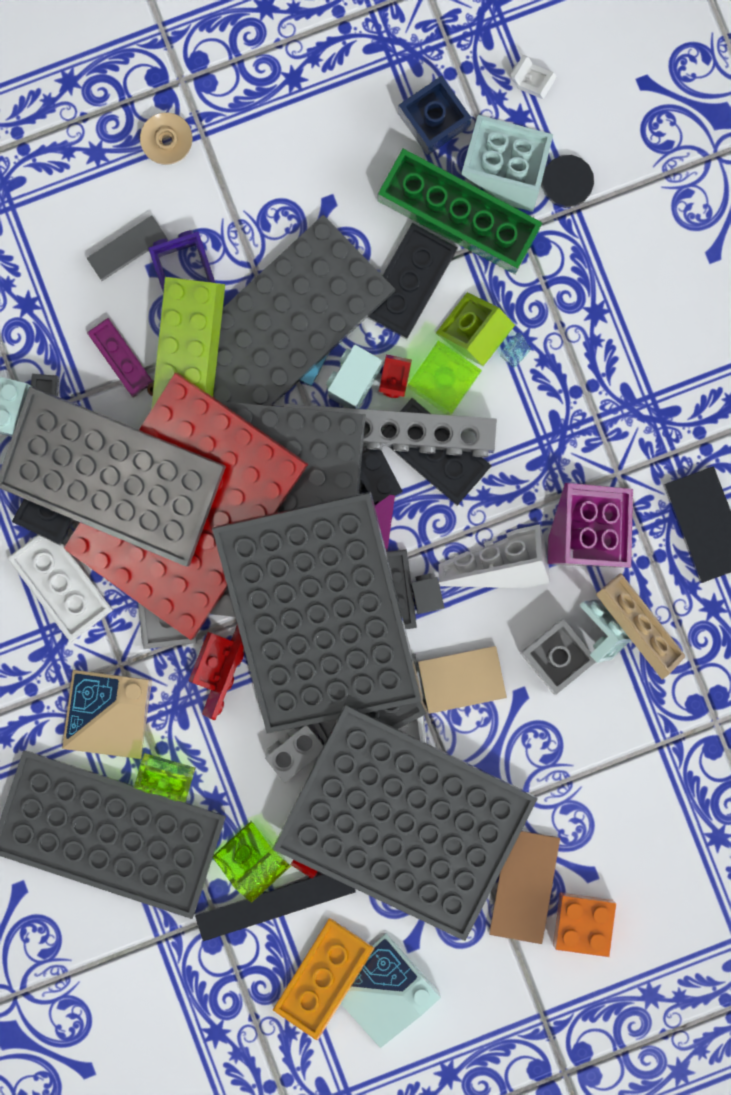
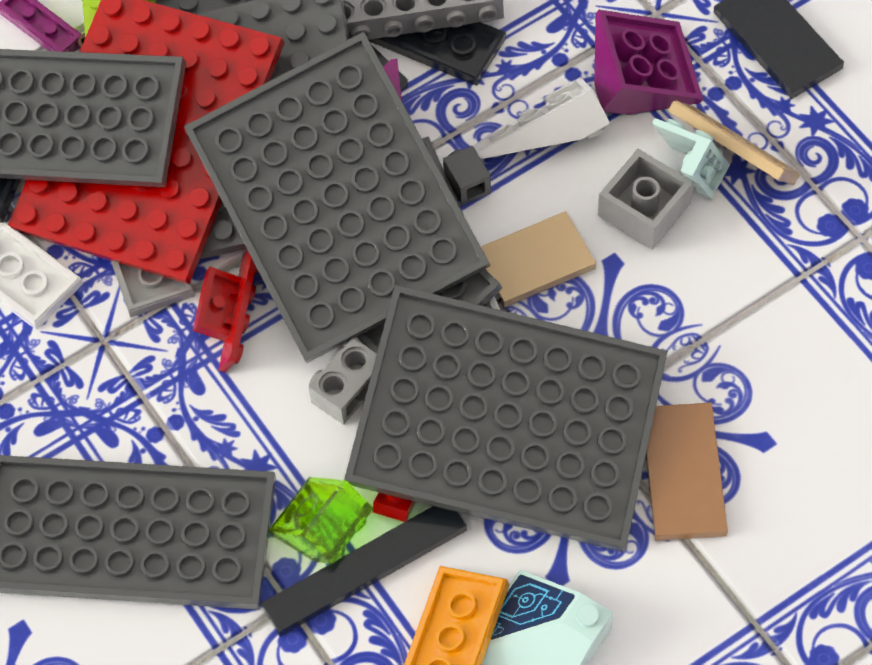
camera: 10 degrees left, 25 degrees down
(107, 714) = (98, 393): tan slope -> none
(164, 778) = (185, 442): clear neon green brick -> none
(584, 924) = (774, 491): orange brick -> none

